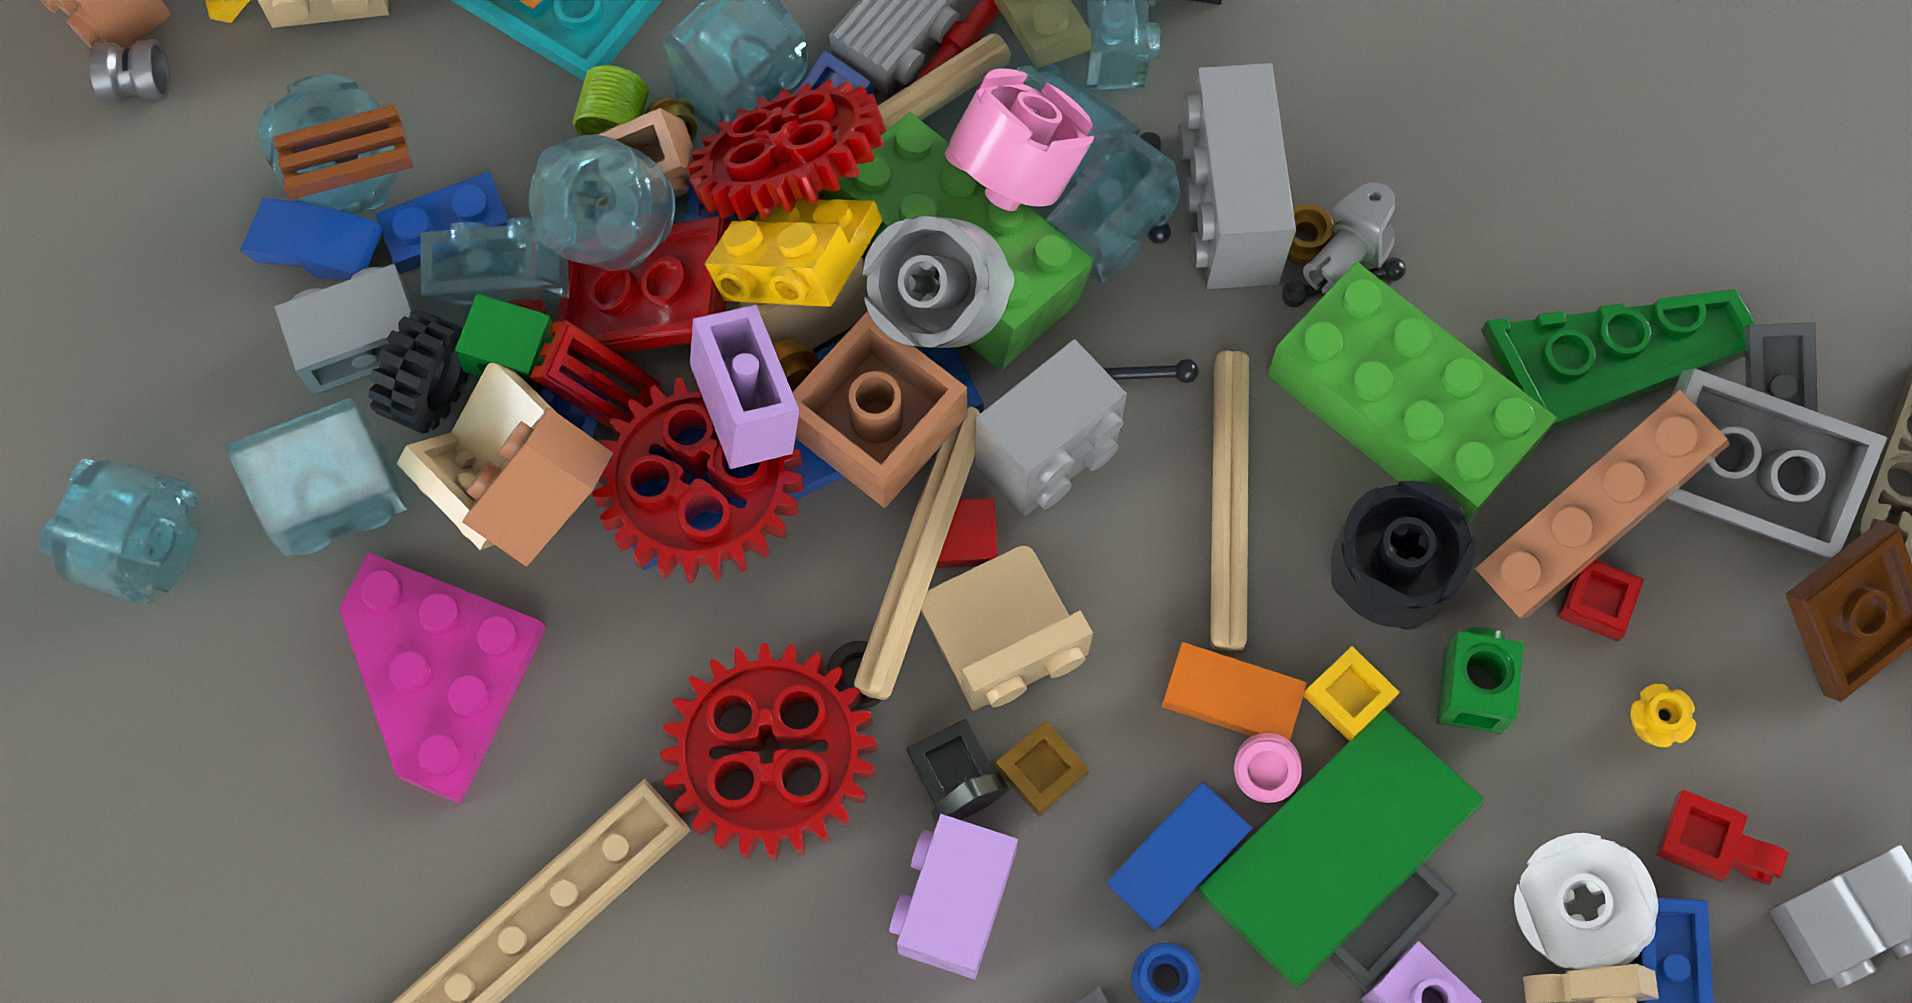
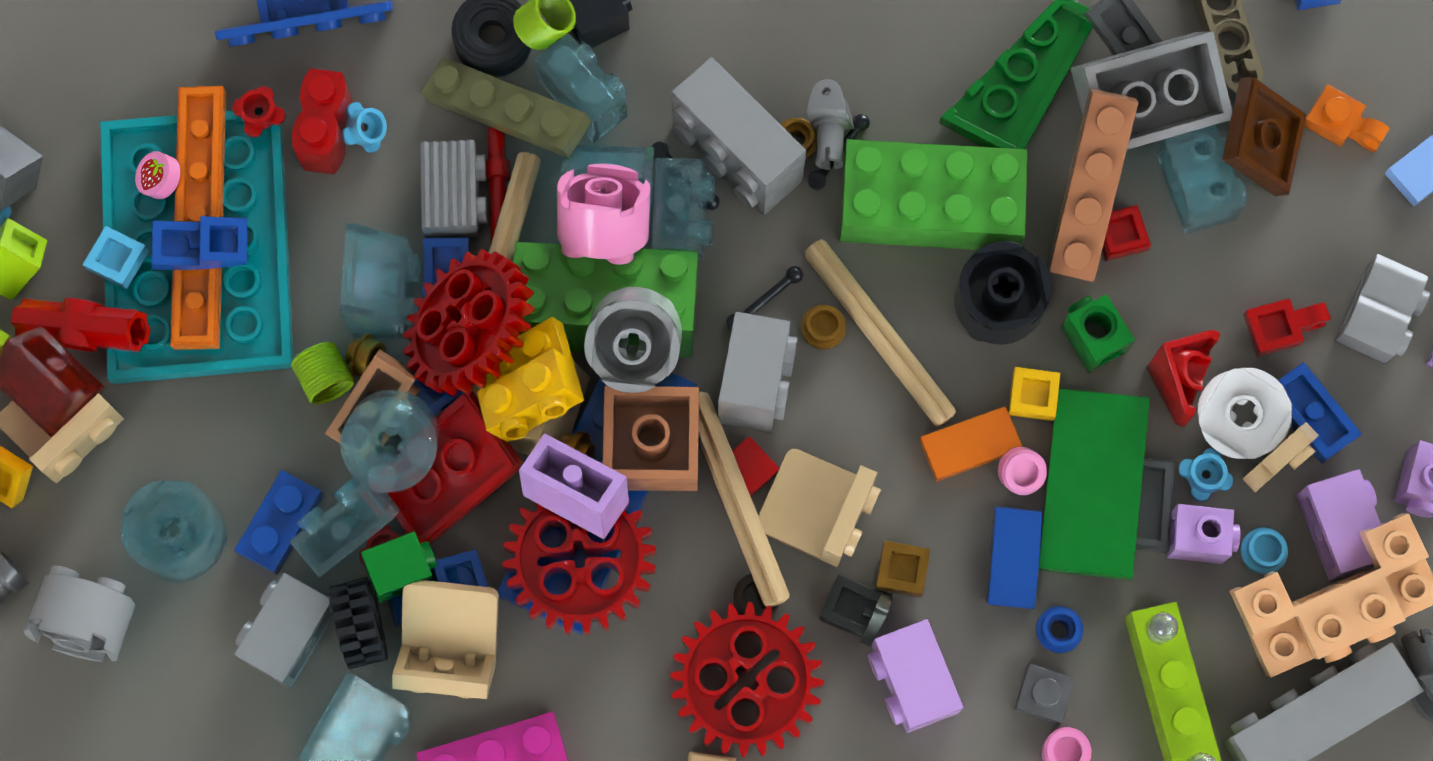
camera: 40 degrees left, 5 degrees up
(169, 158) = (80, 615): none -> light grey brick
(311, 236) = (209, 595): blue slope -> none
(342, 142) = (186, 517): dark orange tile -> none
(537, 485) = (498, 636): nougat brick -> none
(557, 358) = (441, 552): red tile -> none
(1172, 447) = (823, 327): none -> pearl gold plate
(1499, 927) = (1211, 462): none -> medium azure plate
(1548, 794) = (1180, 371): none -> red slope
(1651, 727) = (1204, 286): yellow plate -> none
(1743, 606) = (1199, 179): none -> clear light blue brick

